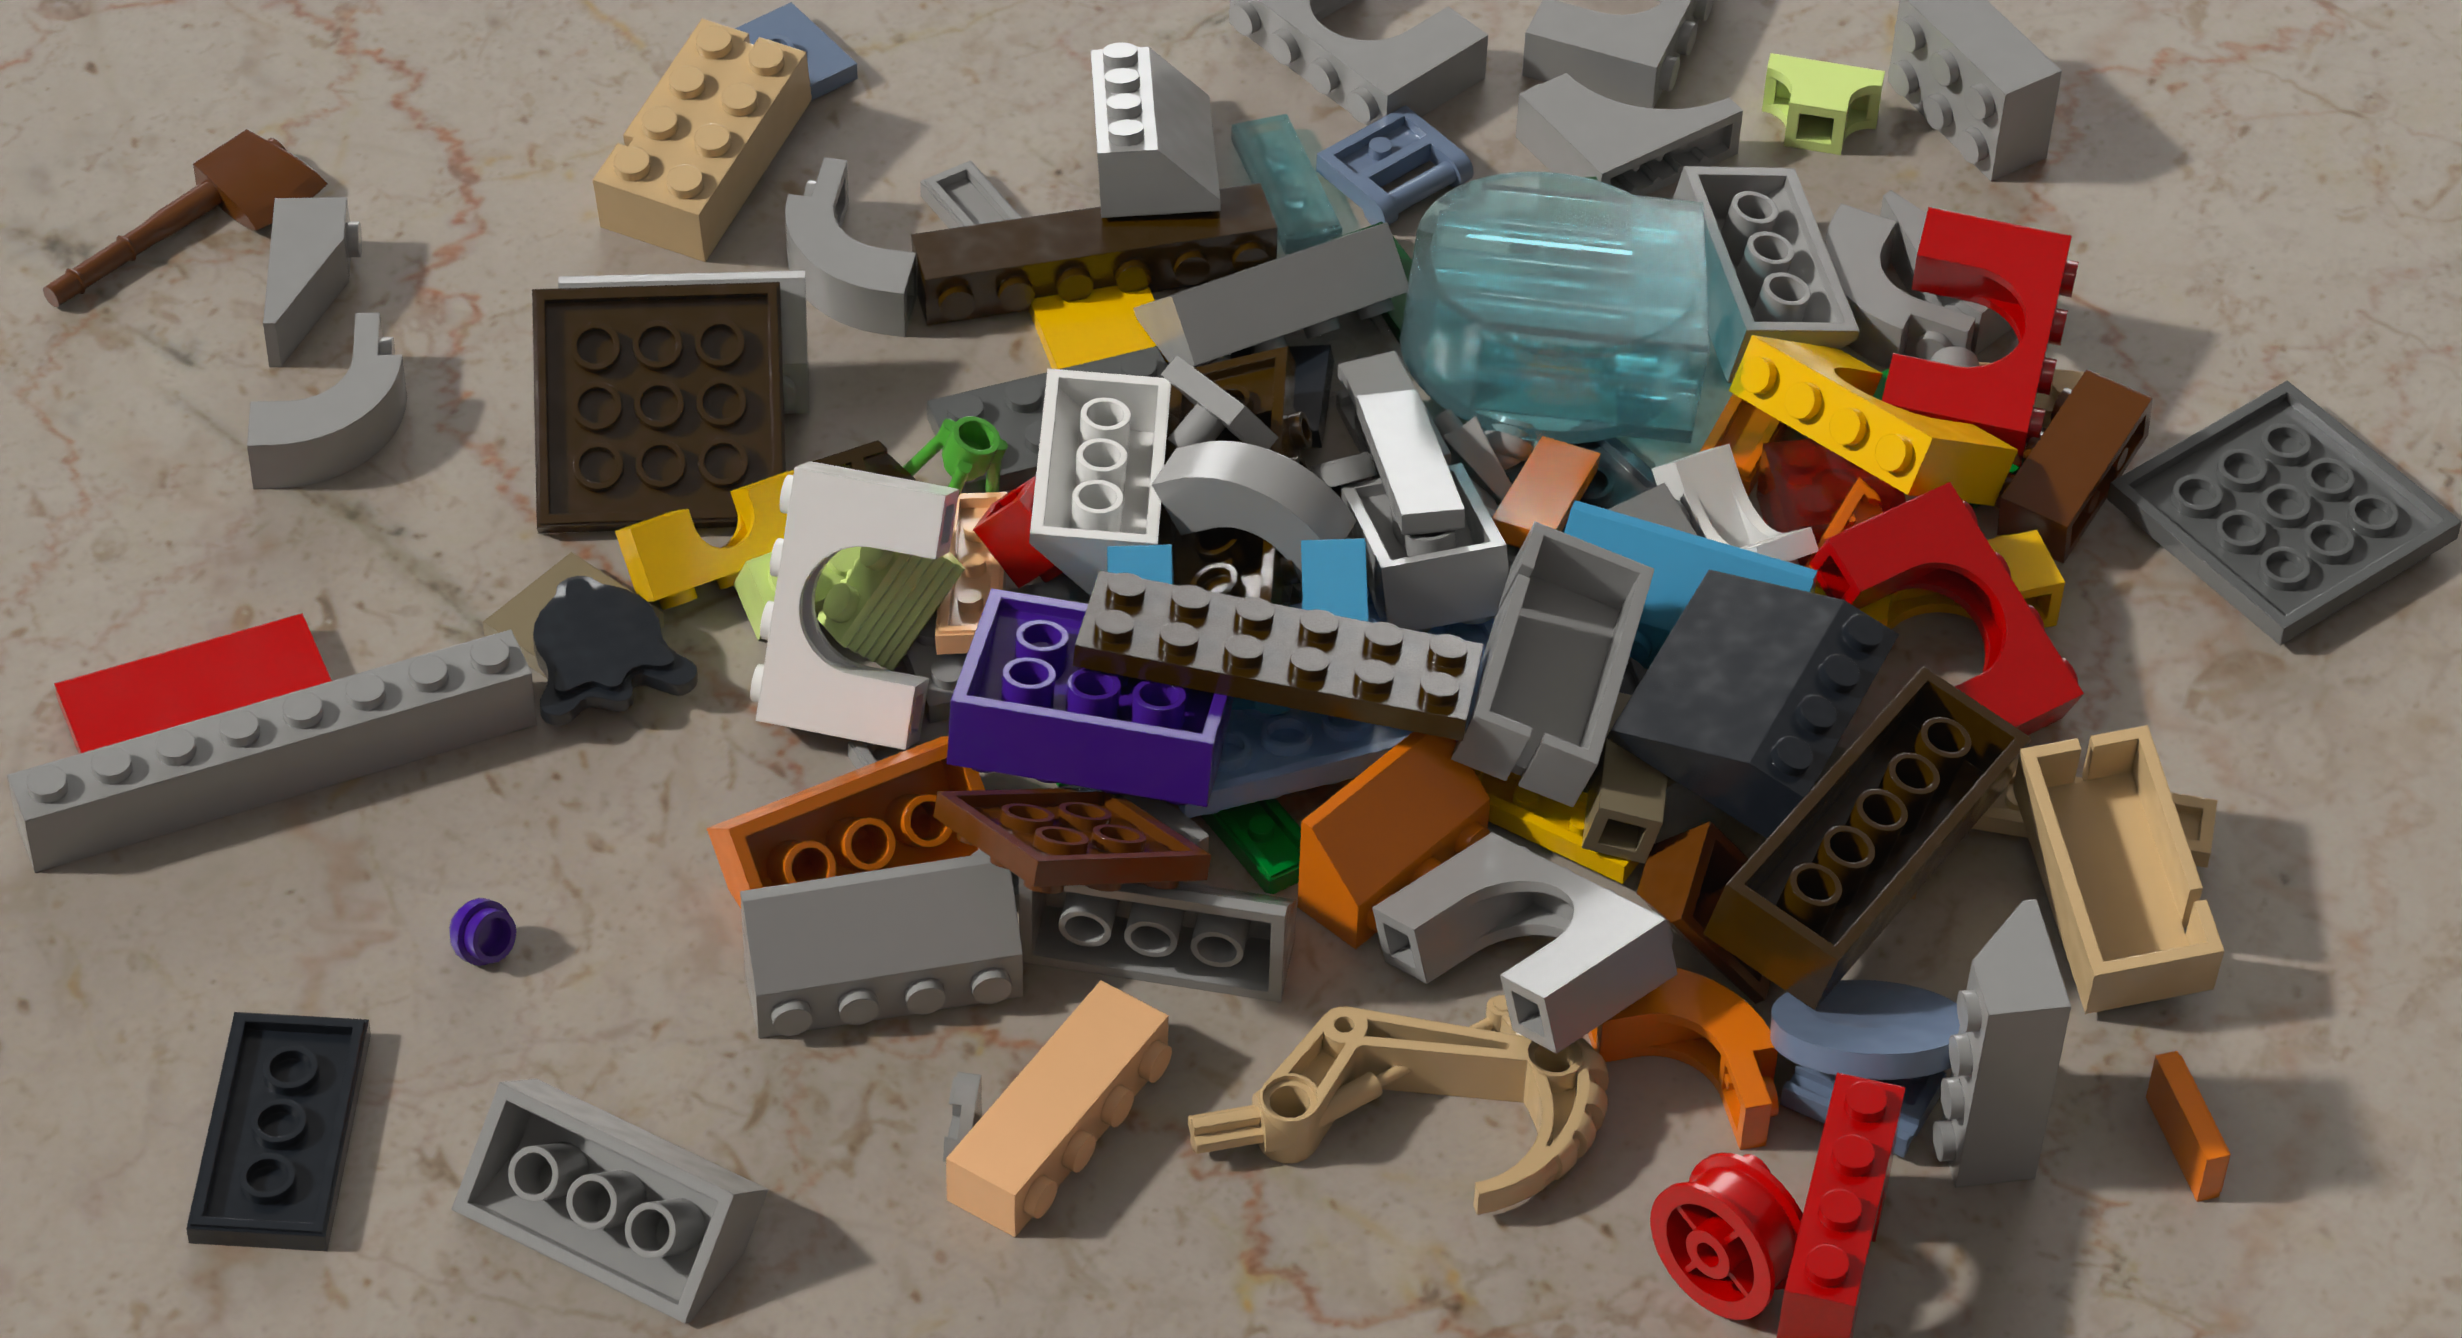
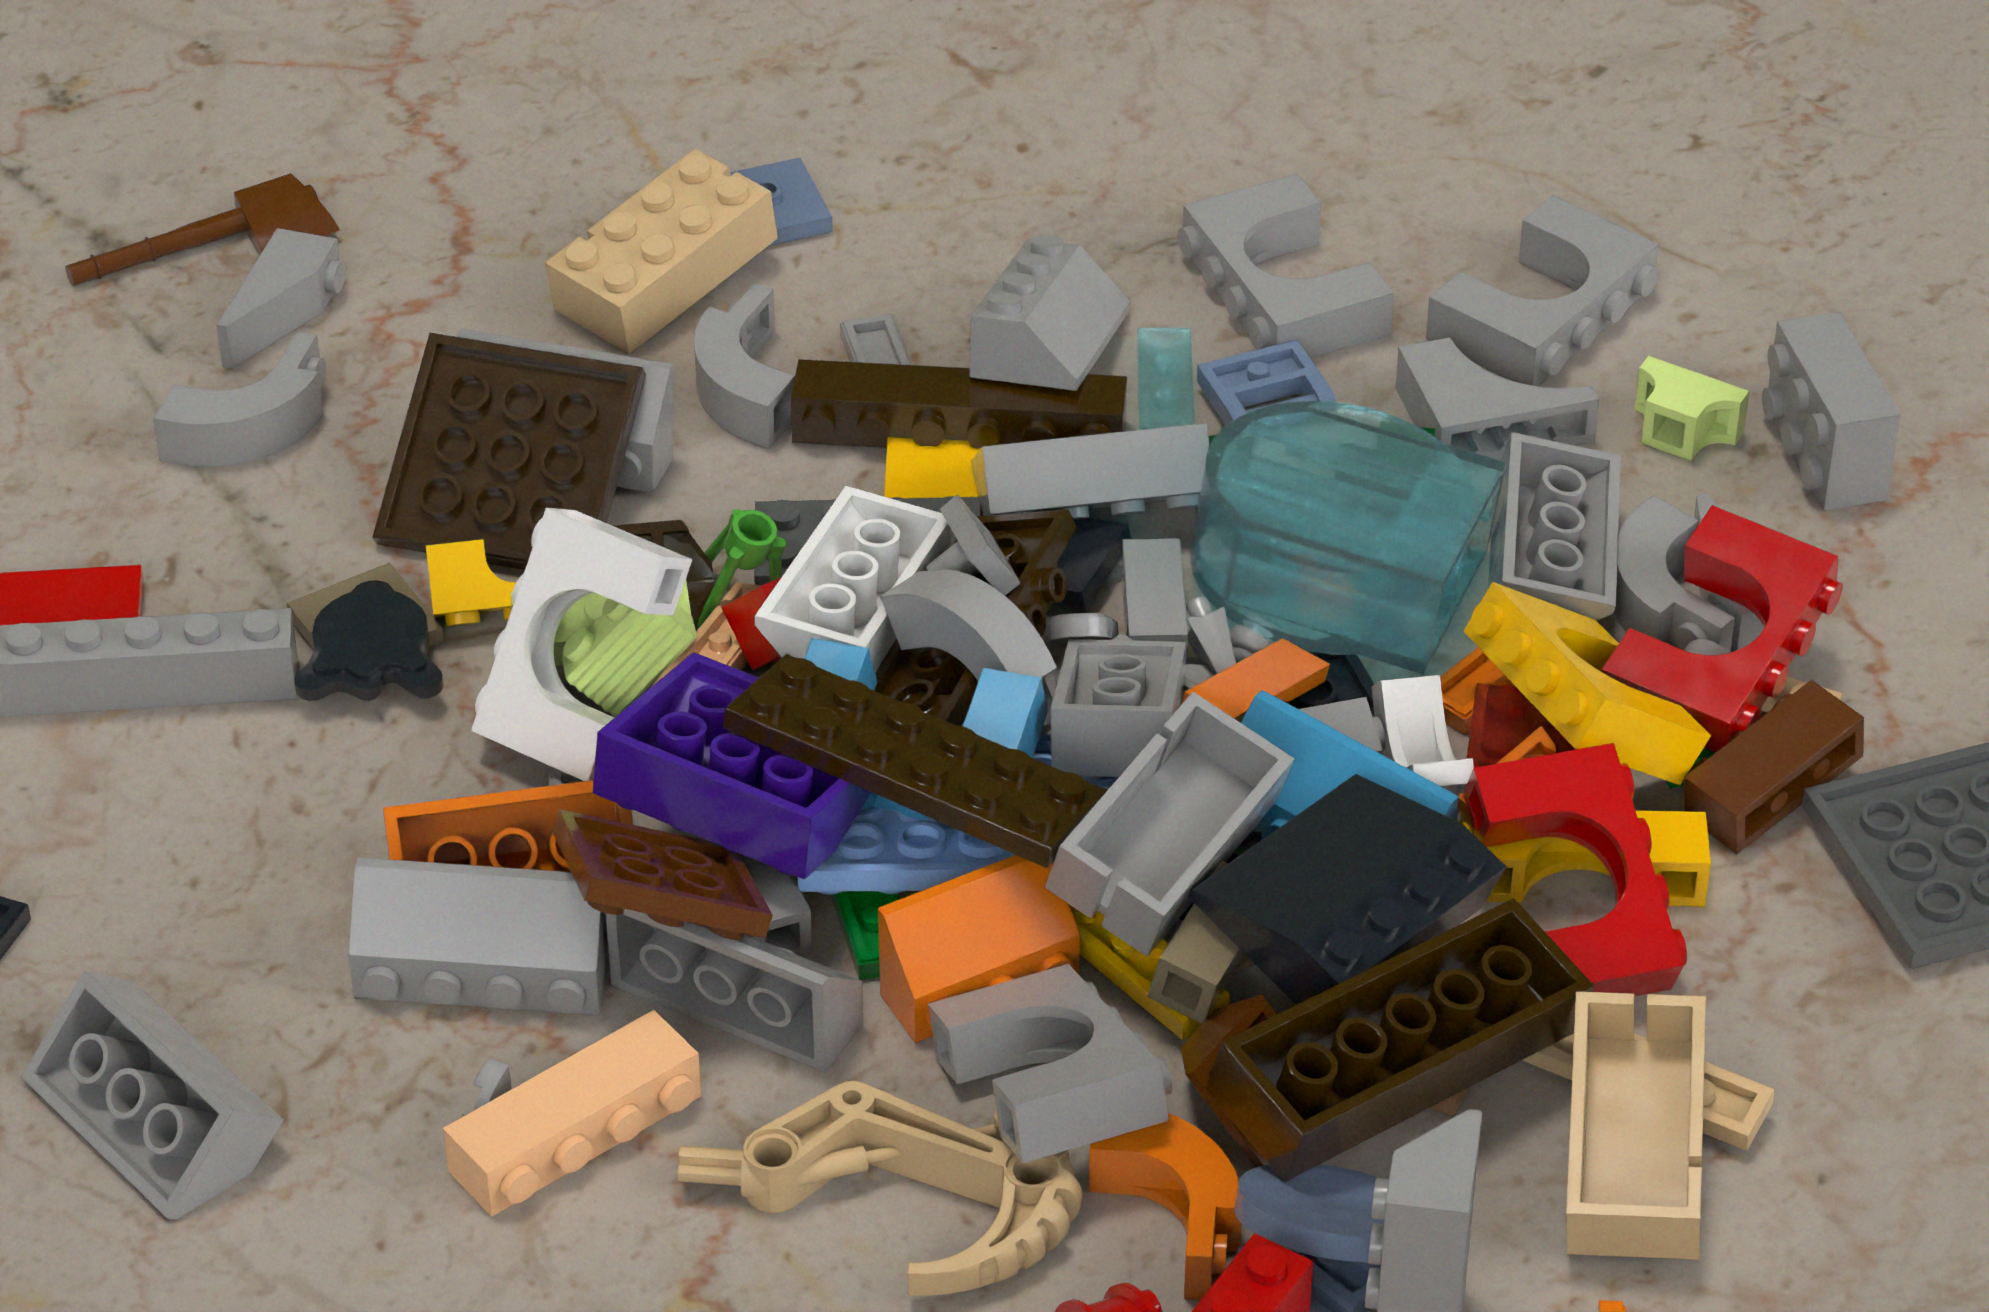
camera: 20 degrees right, 5 degrees down
(482, 932) = (156, 853): dark purple plate -> none
(1410, 462) = (1131, 629): tile -> none

